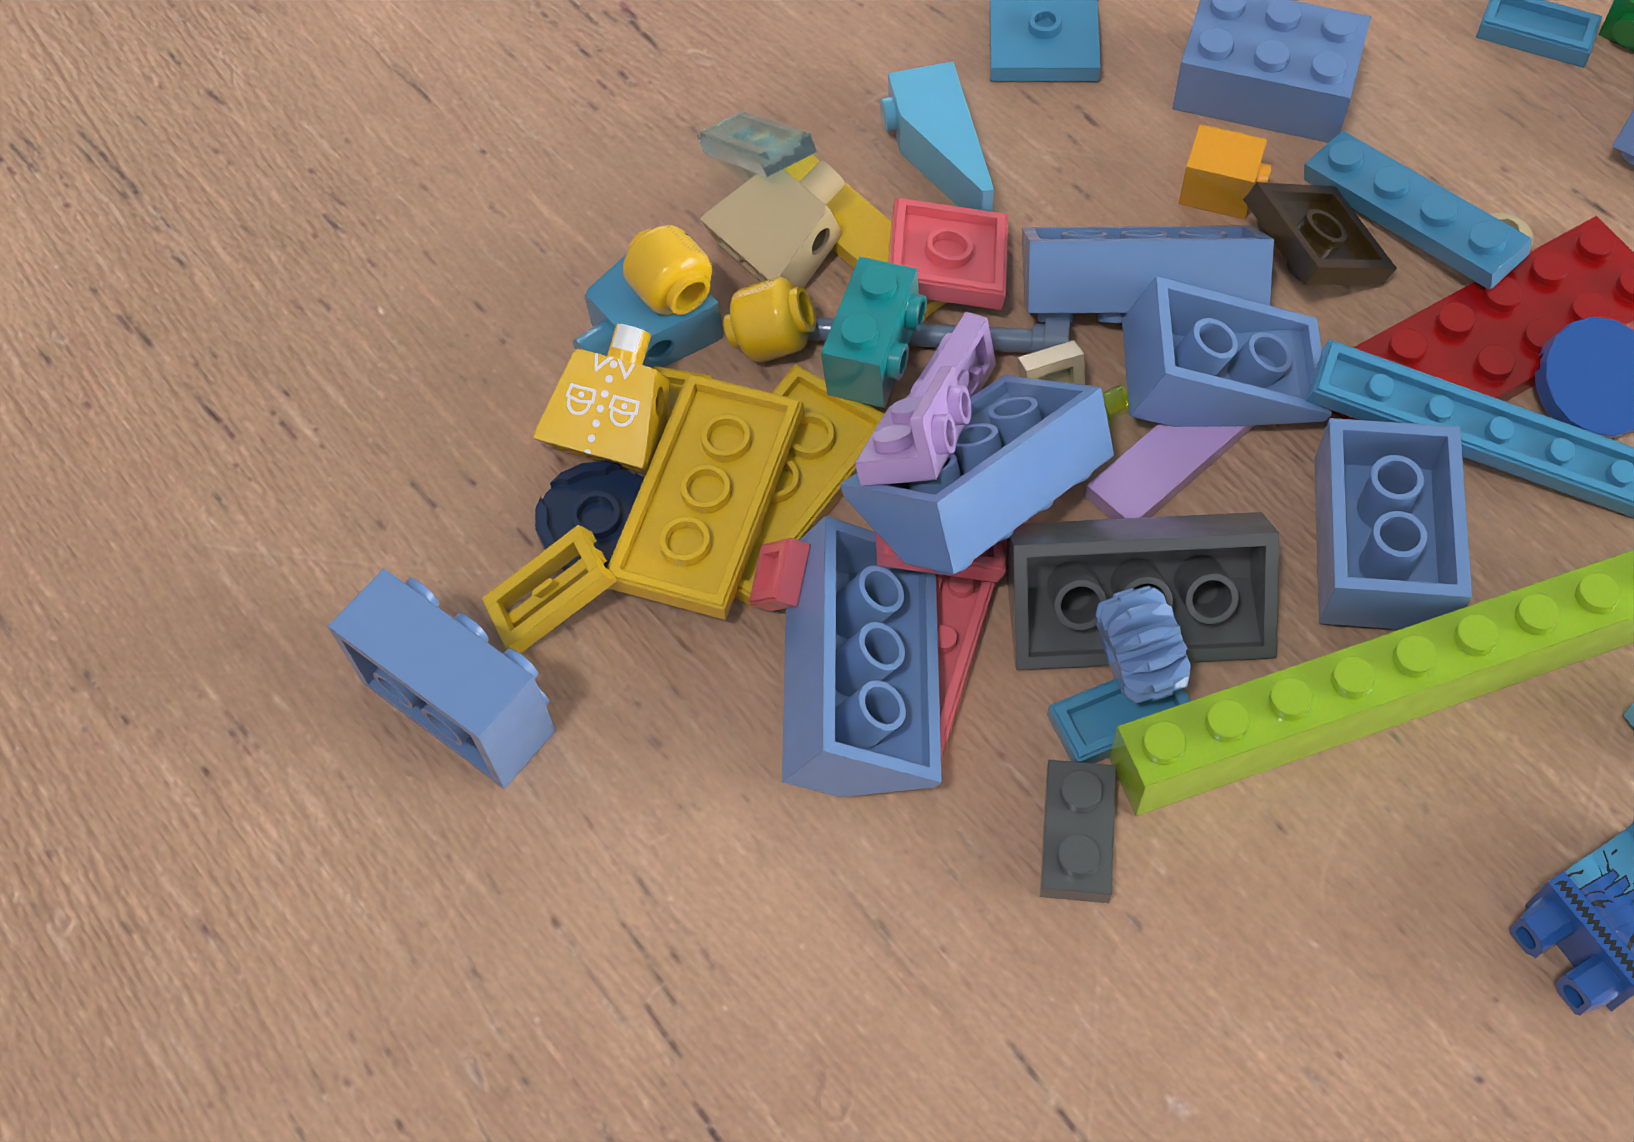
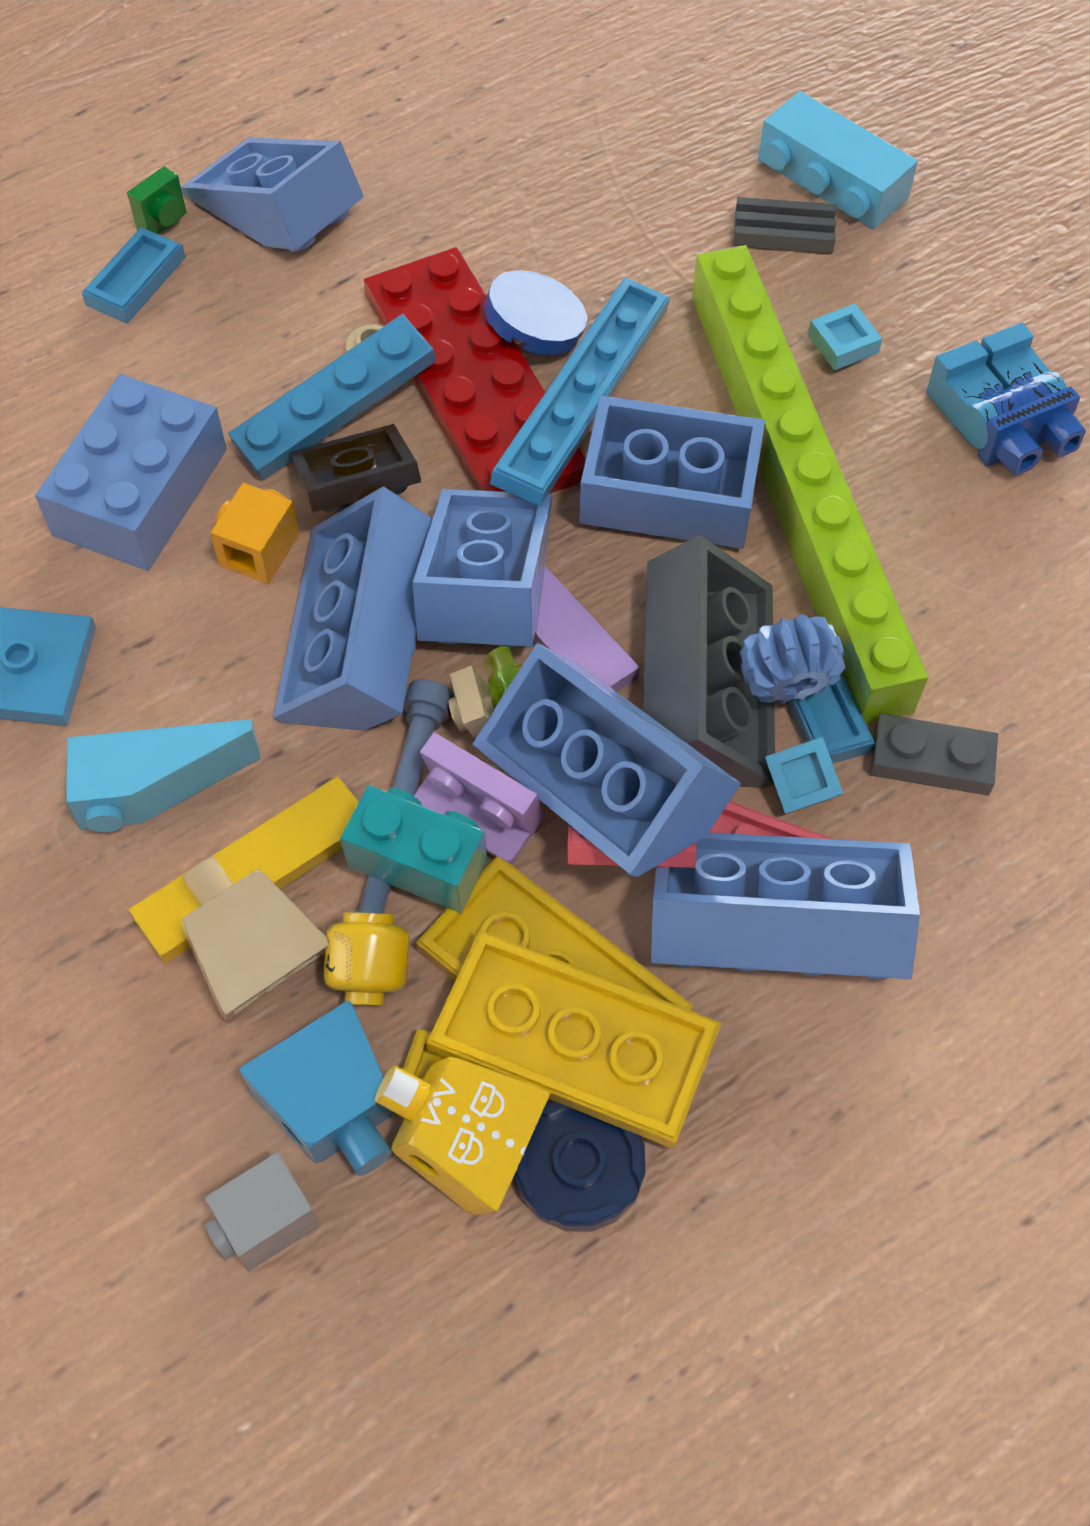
camera: 90 degrees left, 0 degrees up
(445, 675) = (796, 1305): medium blue brick -> none
(539, 282) = (259, 1213): none -> light grey brick
(554, 598) = (699, 1263): yellow tile -> none
(667, 270) = (314, 1039): yellow head -> none
(756, 143) = (134, 945): clear light blue tile -> none
(779, 574) = (686, 966): coral tile -> none
(917, 434) = (589, 797): lavender bracket -> none
(954, 249) = (305, 780): coral tile -> none
(1020, 686) = (804, 775): none -> medium azure plate

